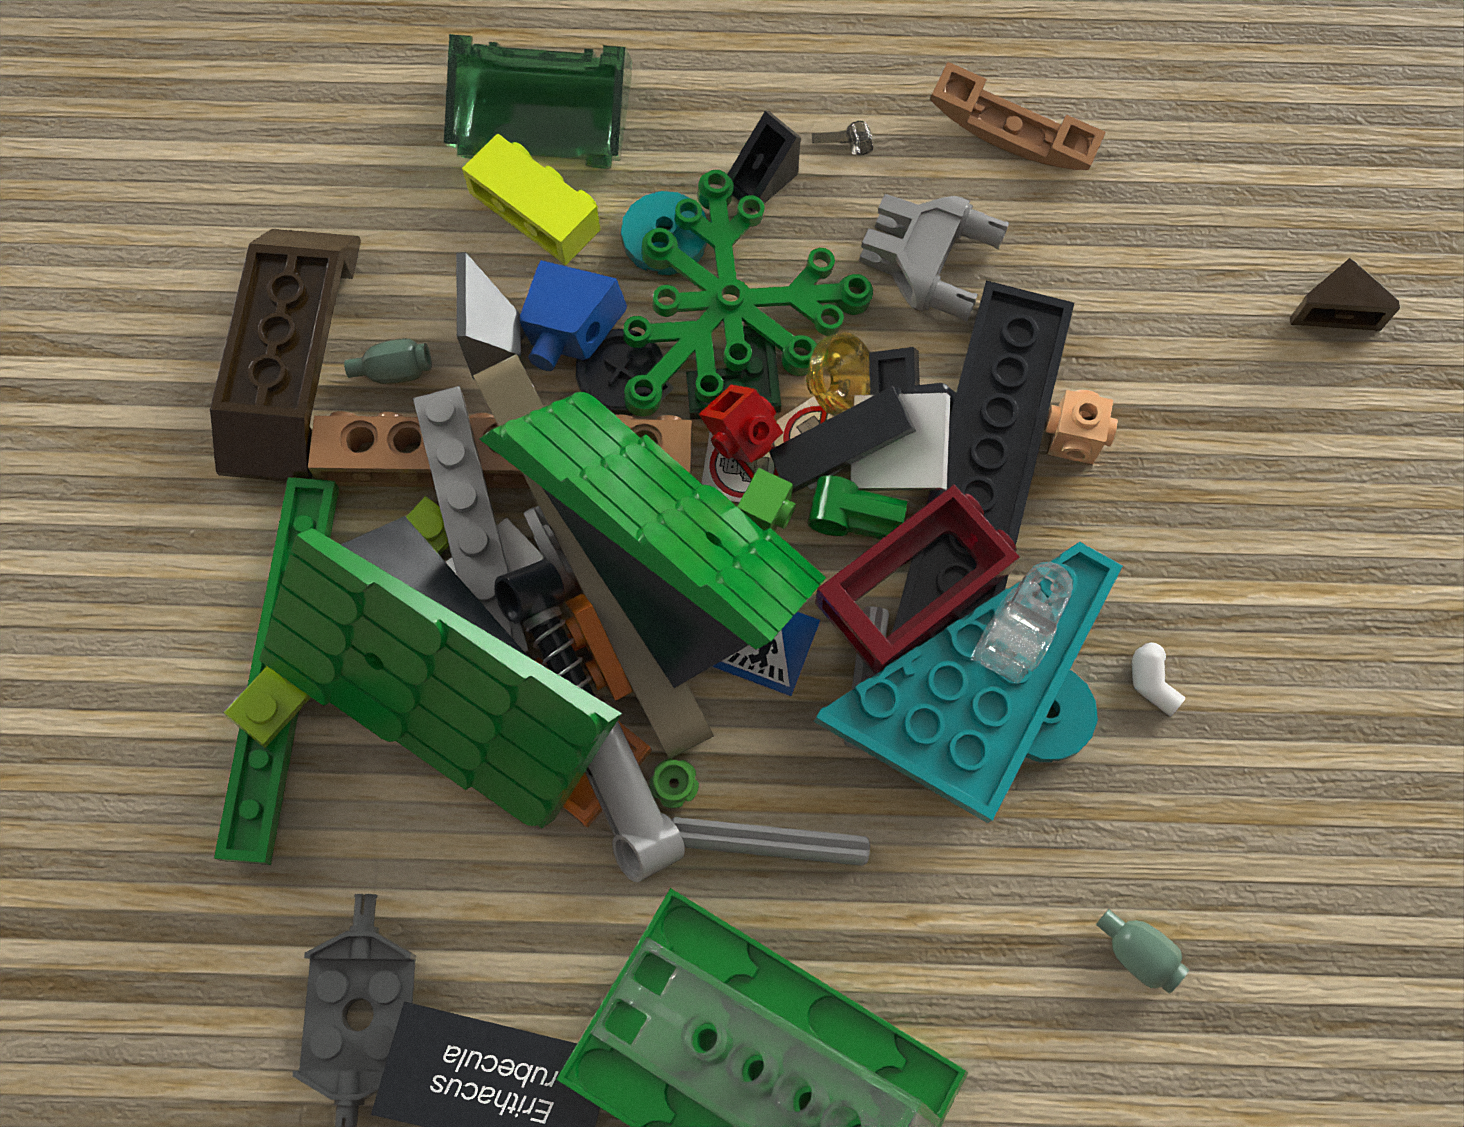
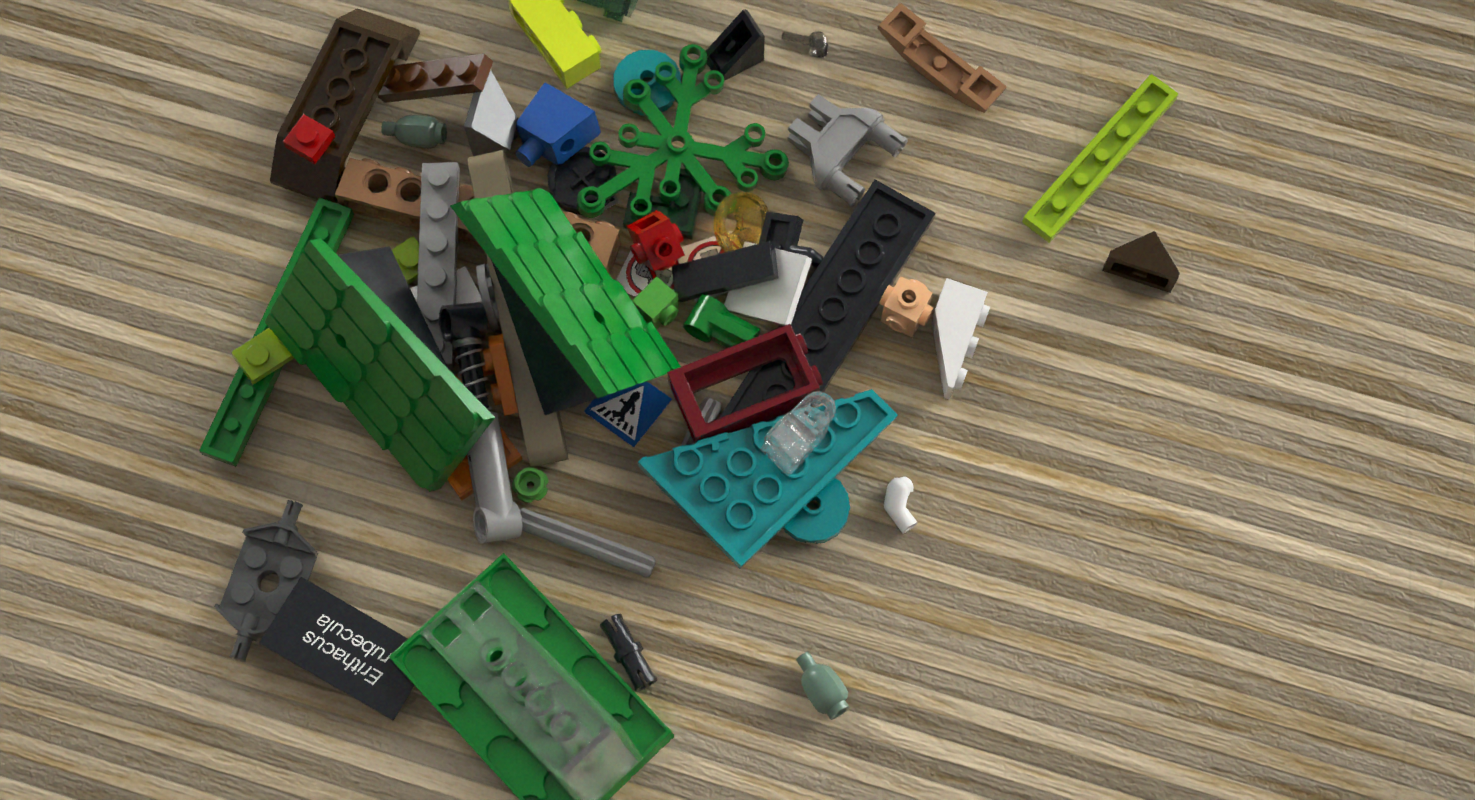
camera: 15 degrees right, 0 degrees up
(254, 403) = (309, 139): none -> red plate
(402, 286) = (436, 78): none -> reddish brown plate
(874, 976) = (628, 652): none -> black pin
(1149, 444) = (953, 327): none -> white slope
(1243, 192) = (1099, 158): none -> lime plate

